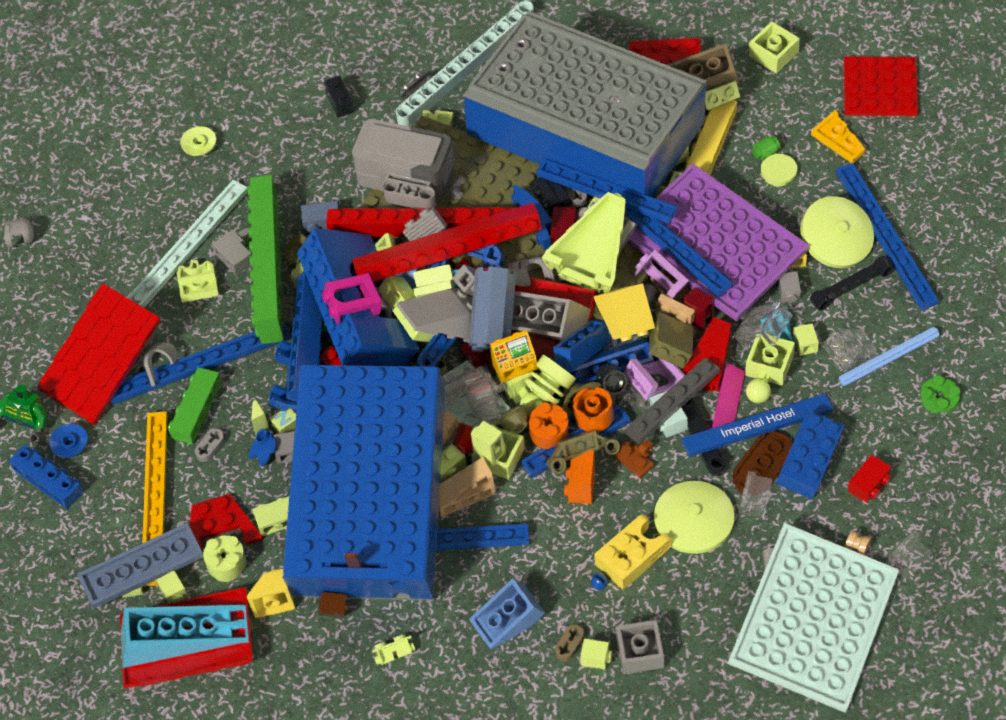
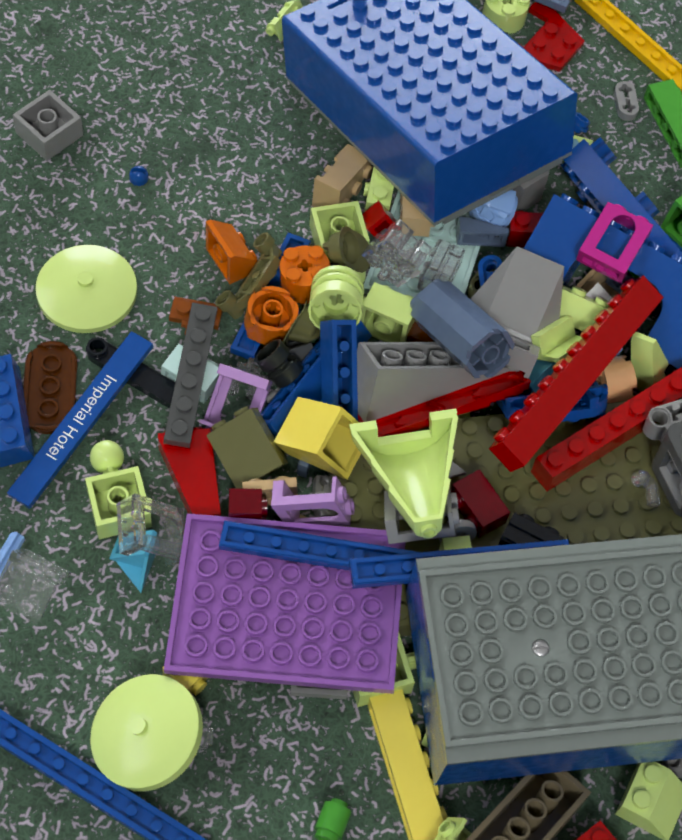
camera: 130 degrees right, 5 degrees up
(258, 417) = (602, 126): yellowish green slope -> none
(427, 224) = (625, 386): light grey brick -> none
(482, 537) = (287, 153): blue plate -> none
(488, 443) = (344, 196): yellowish green brick -> none
(507, 614) = (201, 97): medium blue slope -> none
(513, 356) = (392, 290): yellow slope -> none
(522, 198) = (536, 502): blue slope -> none
(523, 266) = (473, 397): light grey helmet -> none
(572, 645) = (119, 106): dark tan beam -> none
(595, 654) = (90, 103): yellowish green brick -> none
(631, 553) = (123, 207): light yellow brick -> none
(728, 396) = (138, 436): dark pink slope -> none
(755, 495) = (32, 338): clear panel -> none
(778, 169) = (293, 802): yellowish green tile -> none
(789, 287) = (156, 619): light grey brick -> none
(805, 339) = (94, 560): yellowish green brick -> none
(822, 298) = (58, 724): black piece -> none

